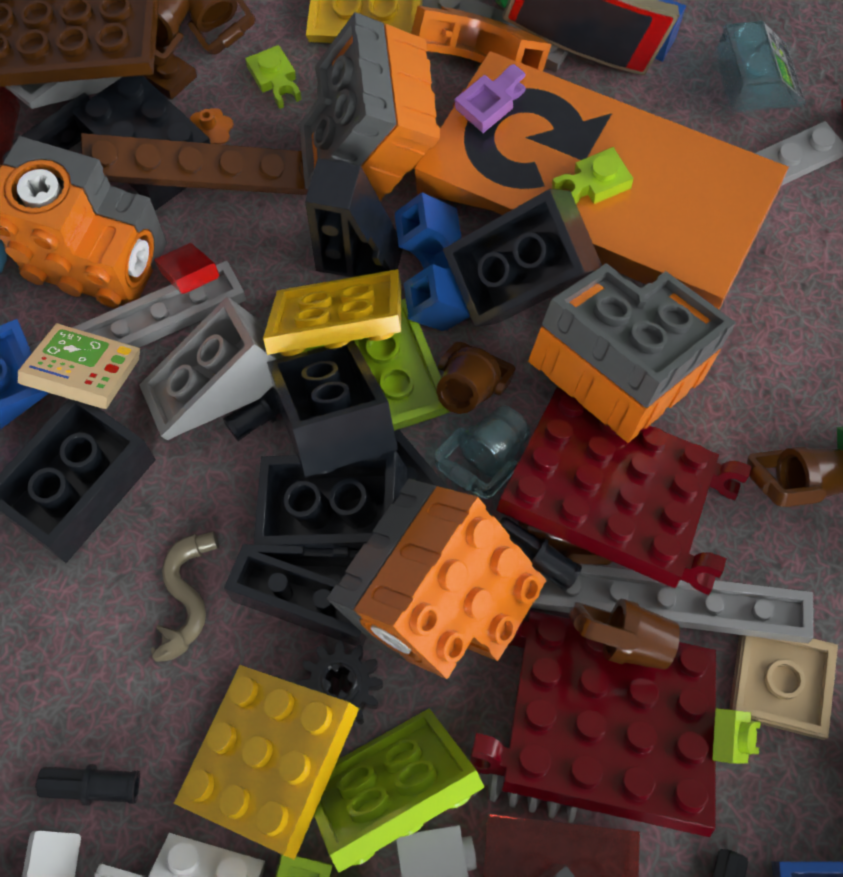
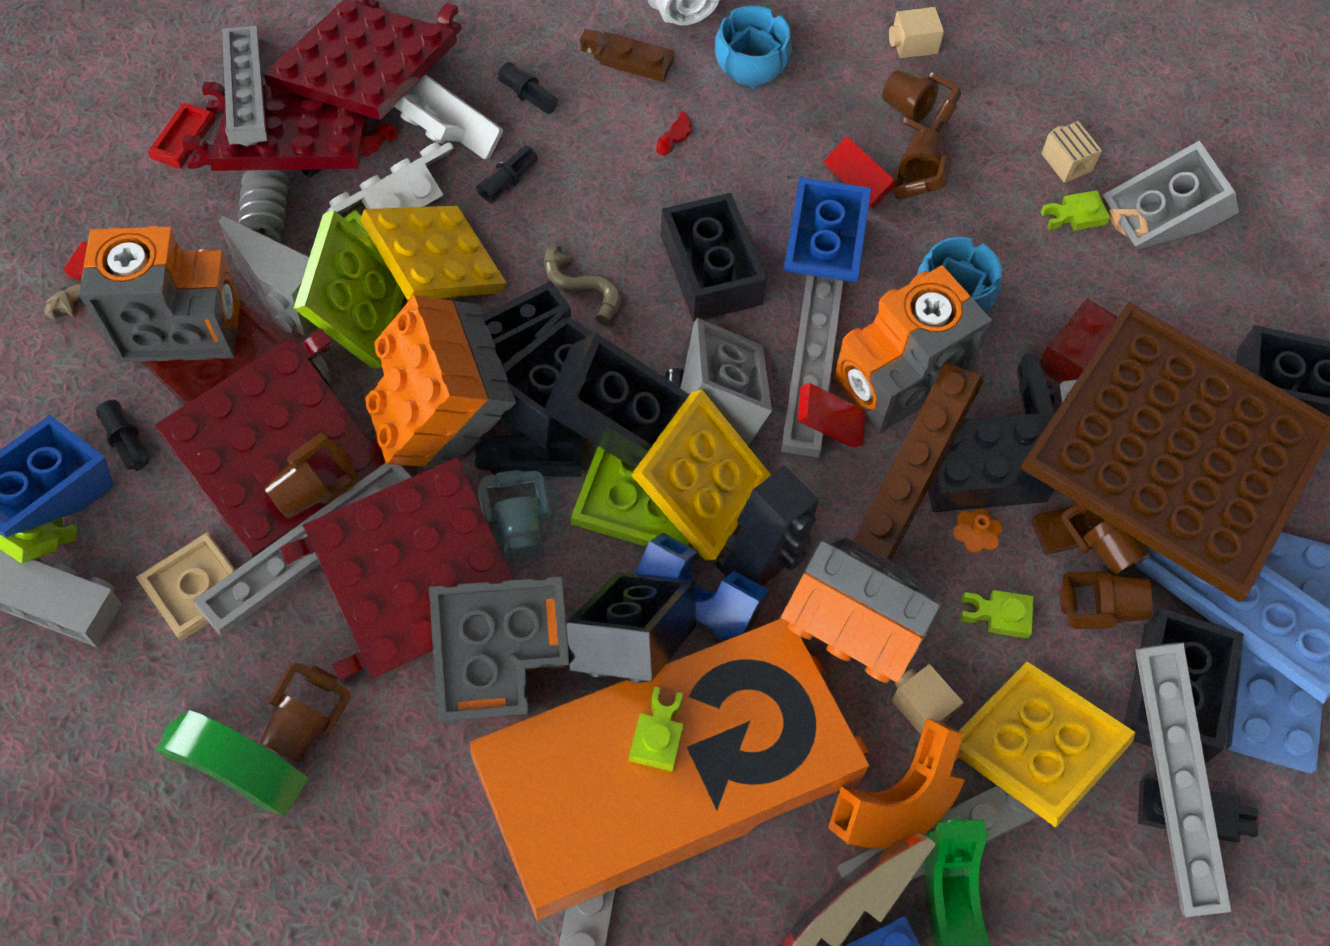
camera: 125 degrees right, 5 degrees down
(79, 366) = (787, 295): tan tile -> none
(471, 377) = (577, 537): reddish brown piece -> none
(490, 100) = (804, 705): medium lavender plate -> none
(544, 557) = (408, 469): black axle -> none
(734, 736) = (192, 501): lime plate -> none

